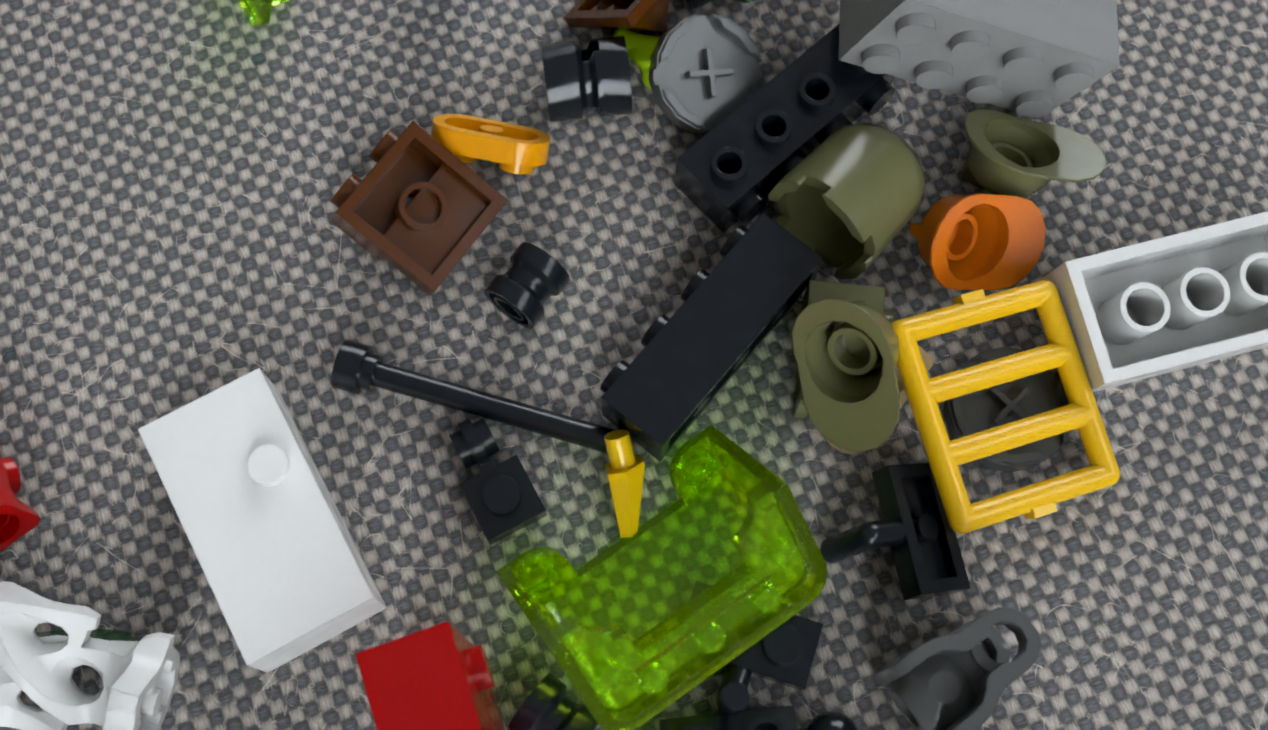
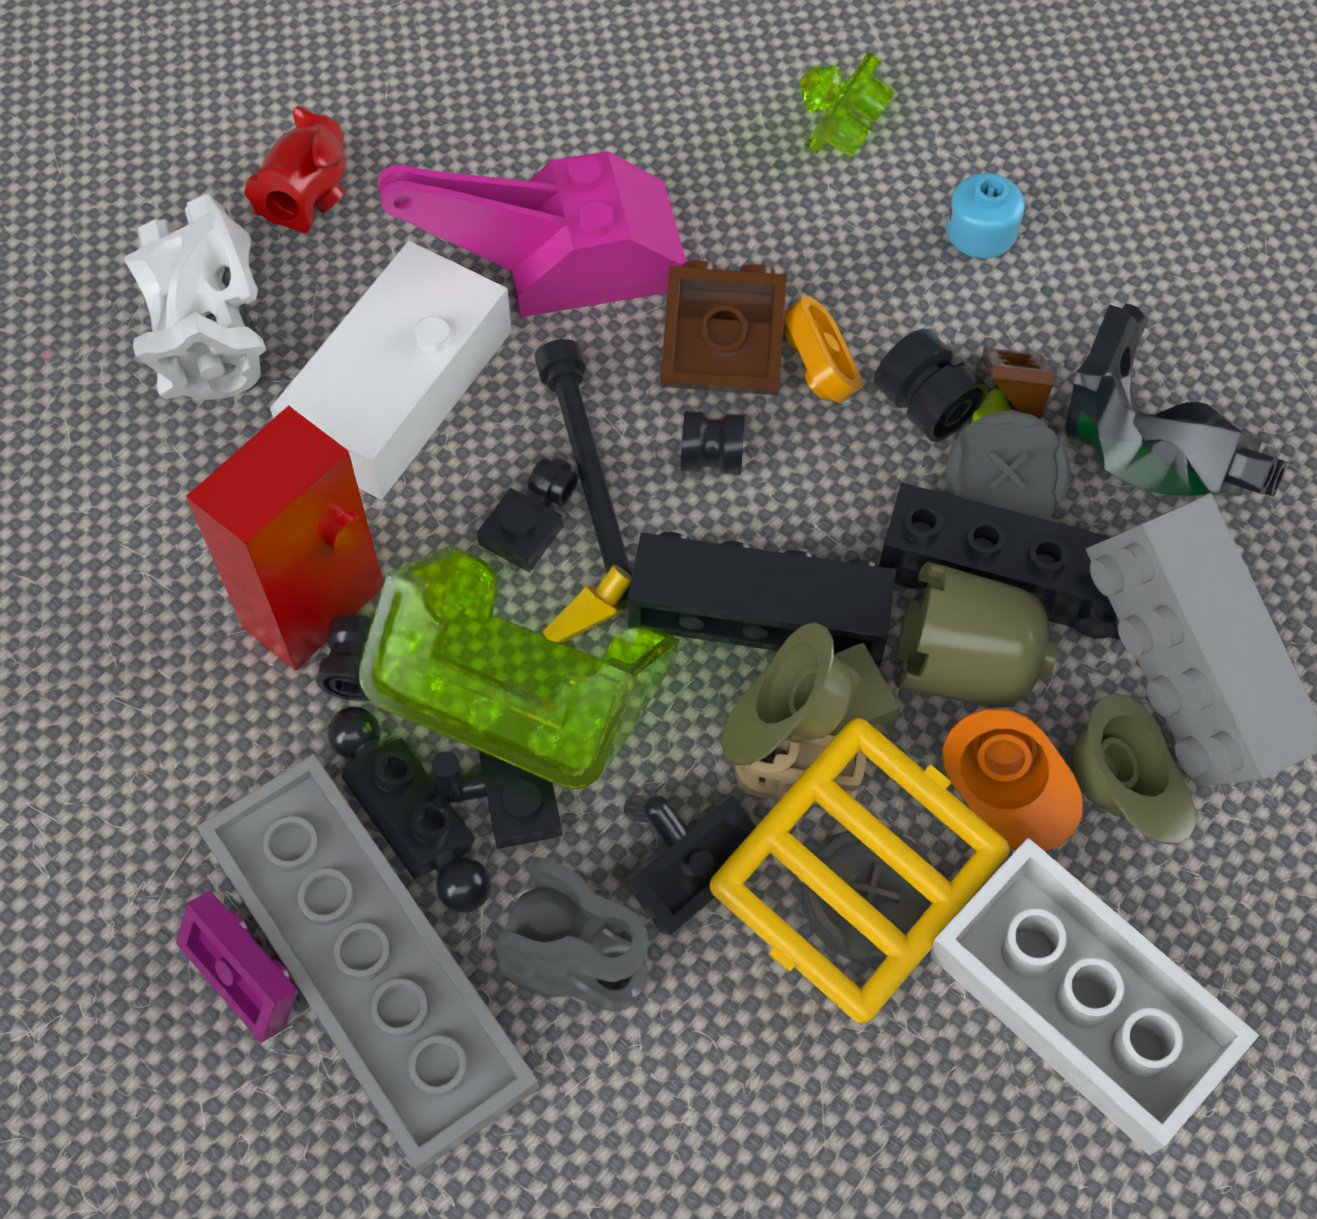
camera: 60 degrees right, 10 degrees down
(216, 287) = (569, 235): none -> dark pink slope

